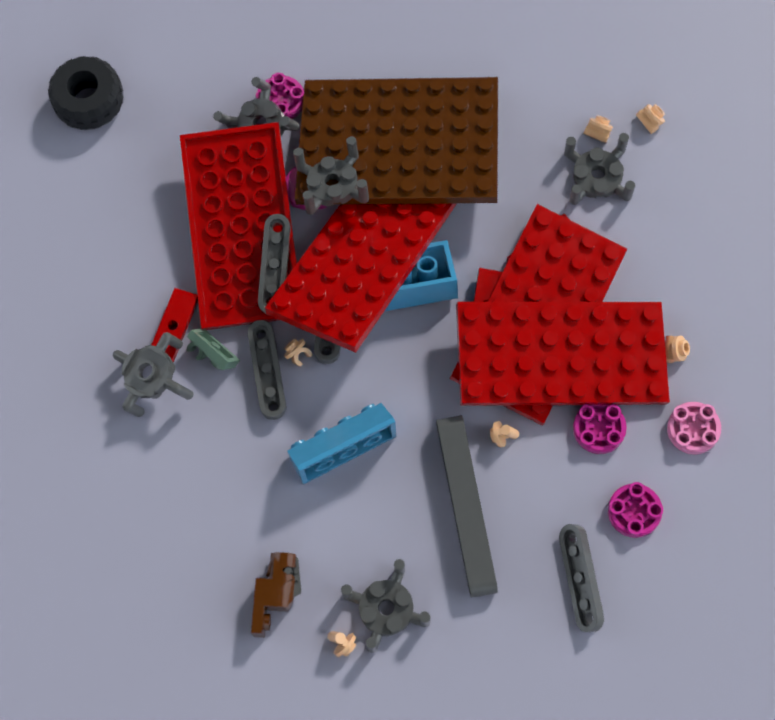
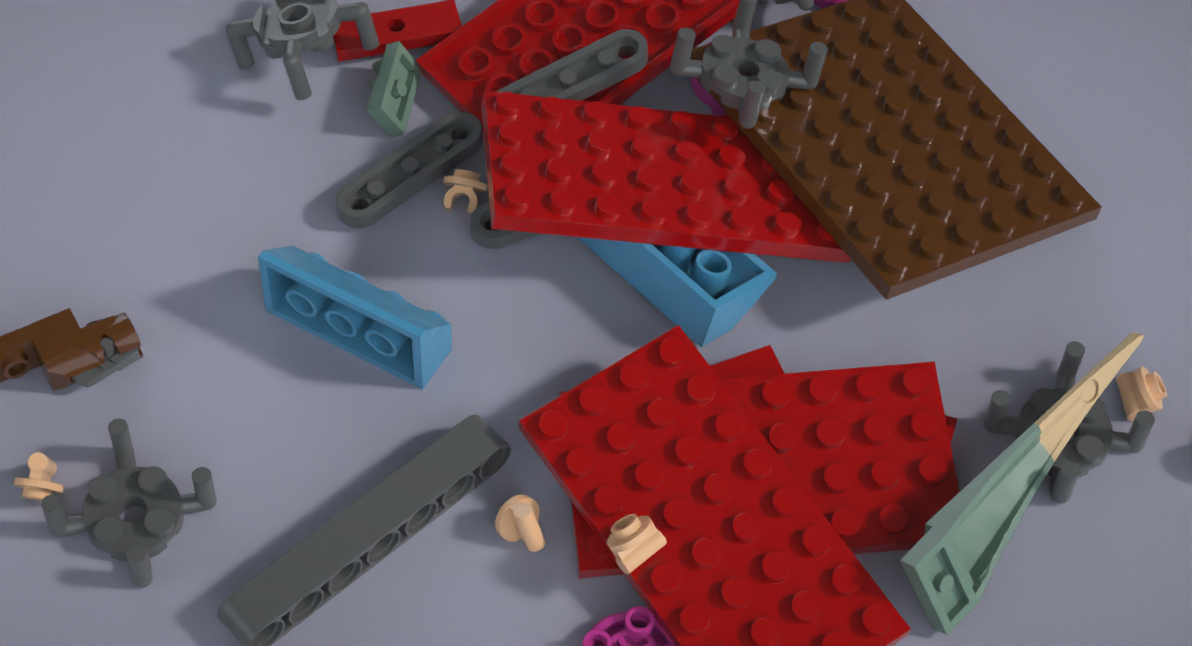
camera: 50 degrees right, 15 degrees down
(558, 391) = (634, 541): none -> light nougat plate
(632, 247) = (972, 530): none -> sand green plate

